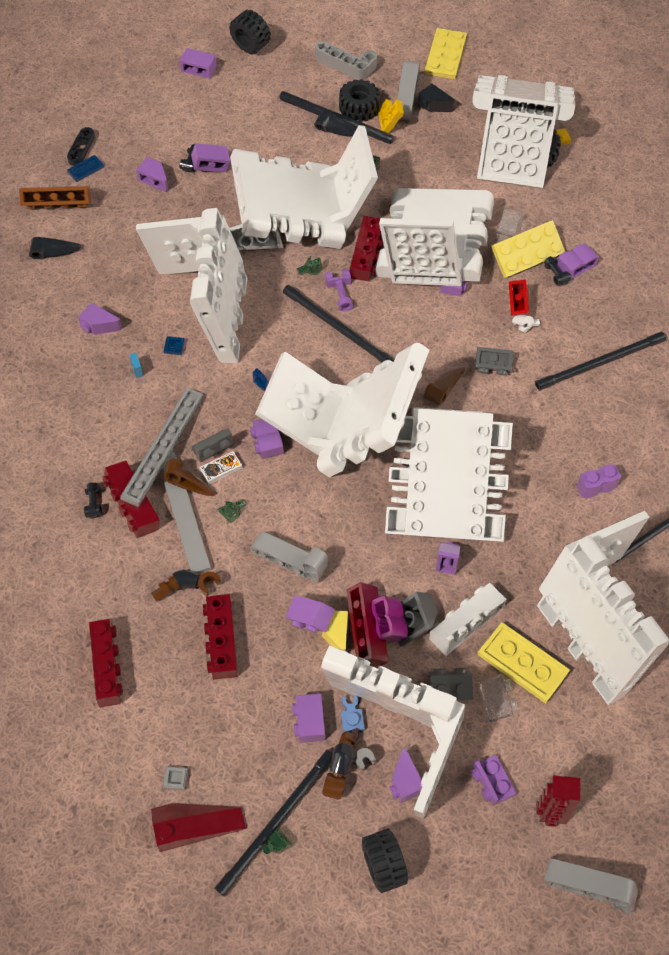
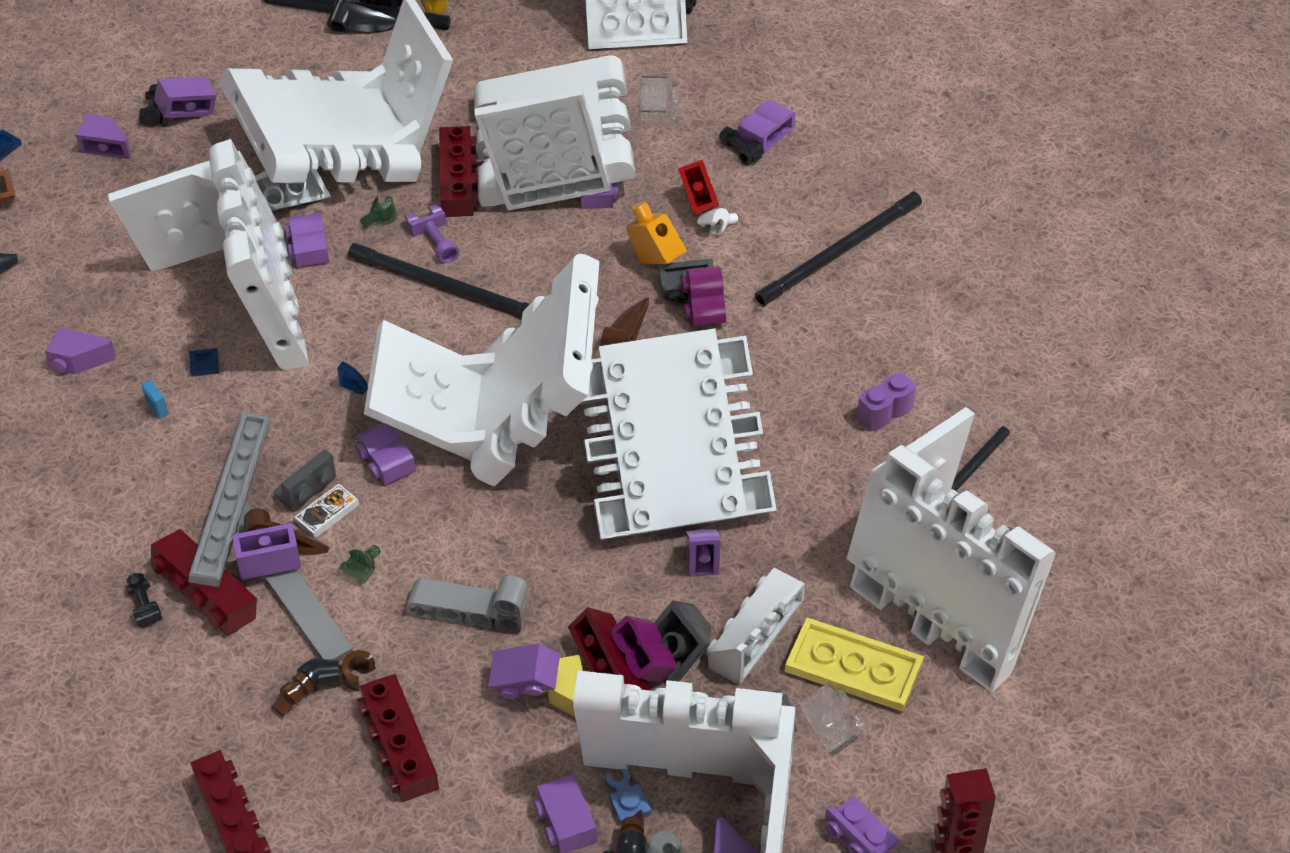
camera: 15 degrees left, 10 degrees down
(173, 489) = (266, 551): none -> medium lavender brick
(260, 275) = (308, 240): none -> medium lavender brick
(479, 327) = (654, 236): none -> light orange torso
(501, 376) = (705, 296): none -> magenta brick
(528, 249) = (691, 124): light yellow plate -> none

